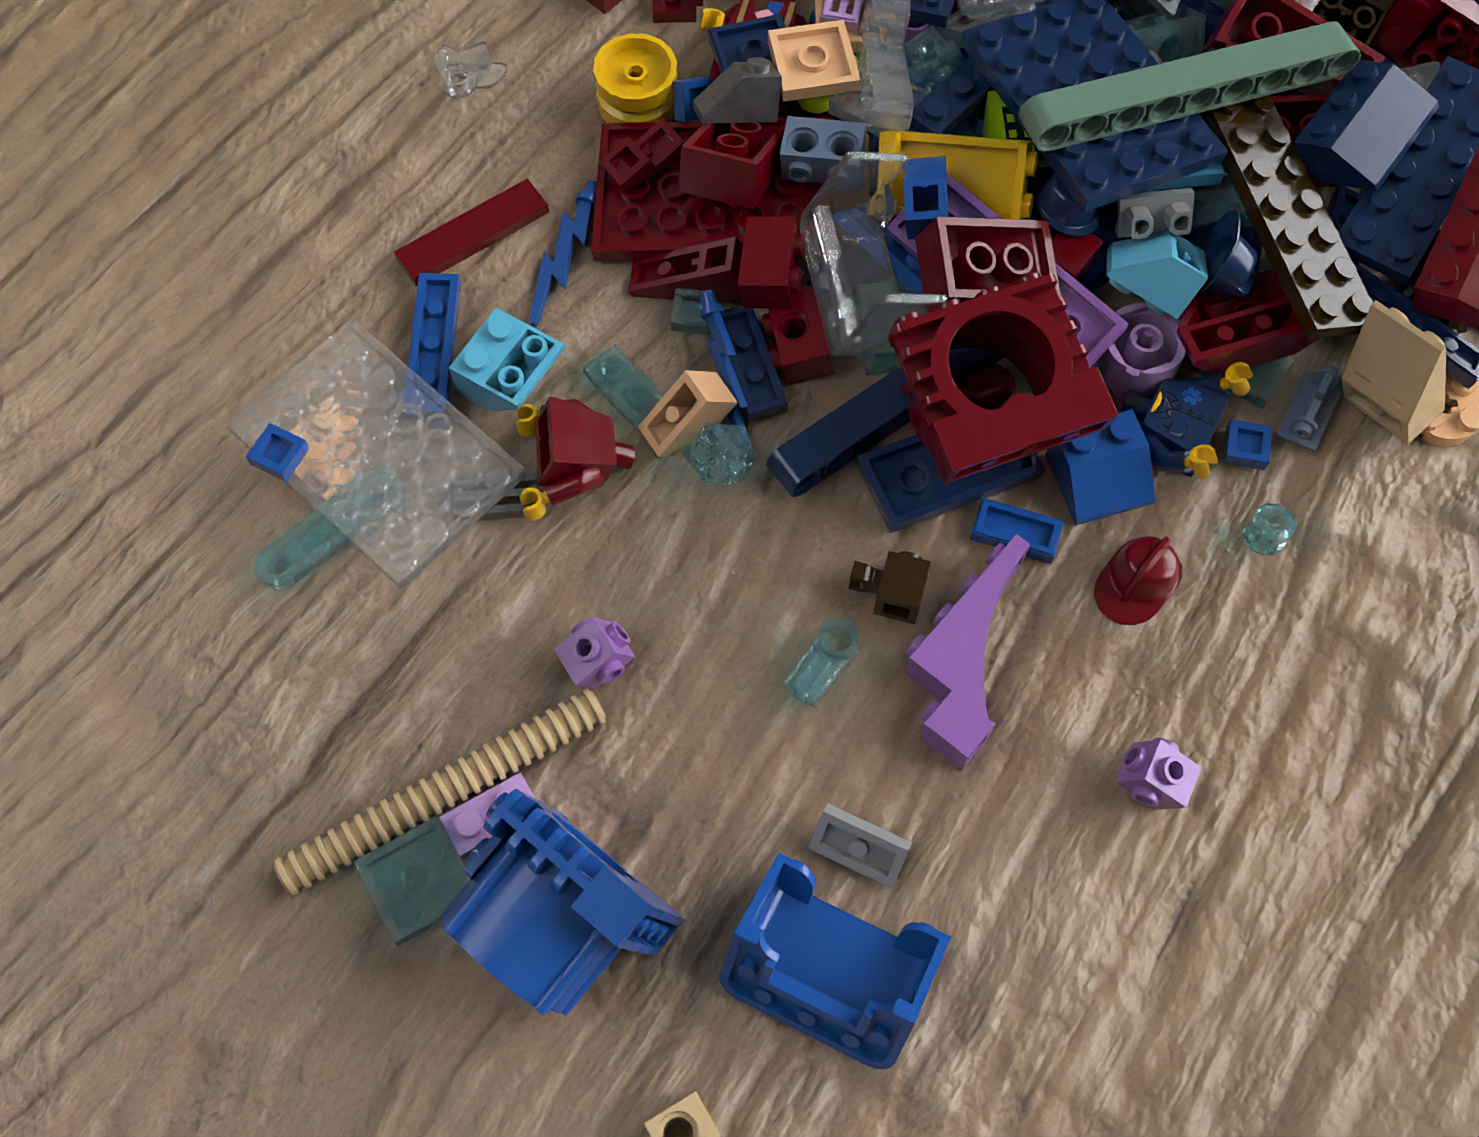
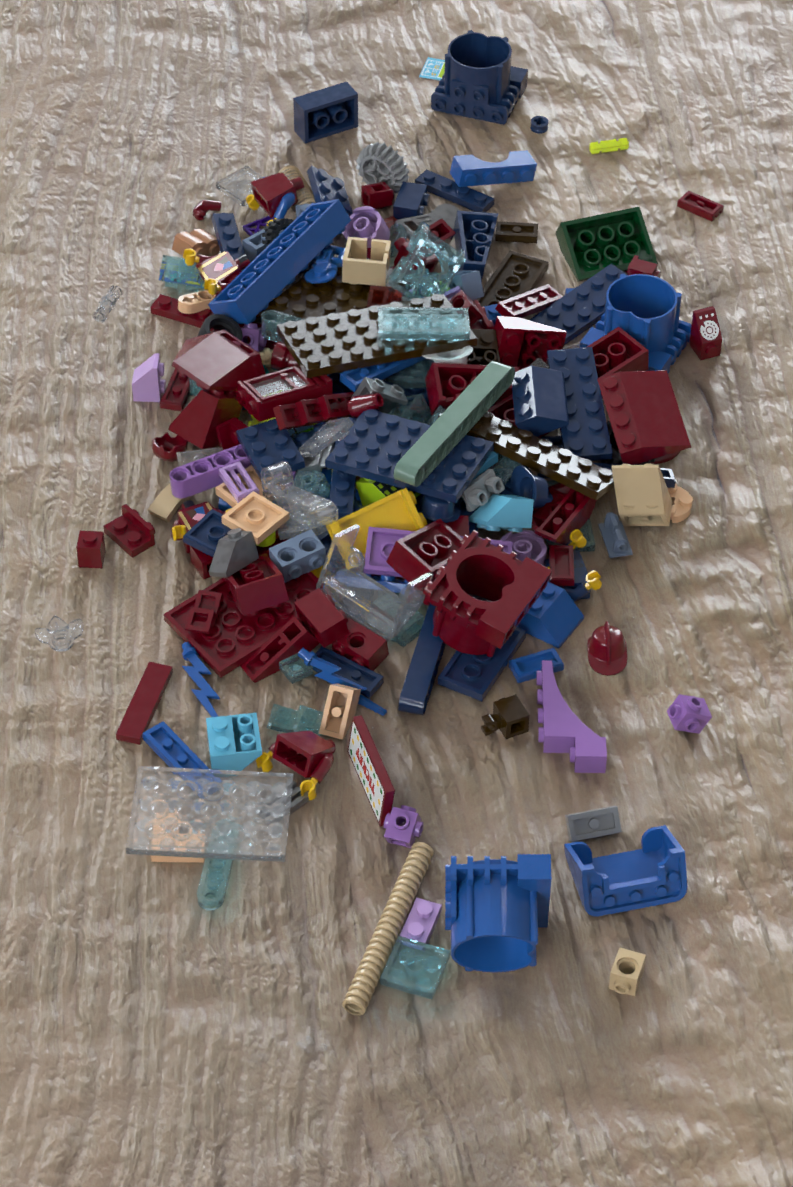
camera: 40 degrees left, 20 degrees down
(277, 452) = (171, 837): blue plate -> none
(630, 534) = (370, 769): none -> tile
(635, 79) = (163, 583): yellow wheel -> none
(684, 93) = (200, 574): blue plate -> none
(721, 454) = (368, 711): clear light blue brick -> none
(822, 664) = (507, 766): clear light blue piece -> none
(924, 193) = (376, 539): blue slope -> none
(1179, 404) = (562, 565): none -> dark red tile
(1247, 444) = (604, 566): blue plate -> none
(1265, 539) = (643, 595): clear light blue wheel -> none

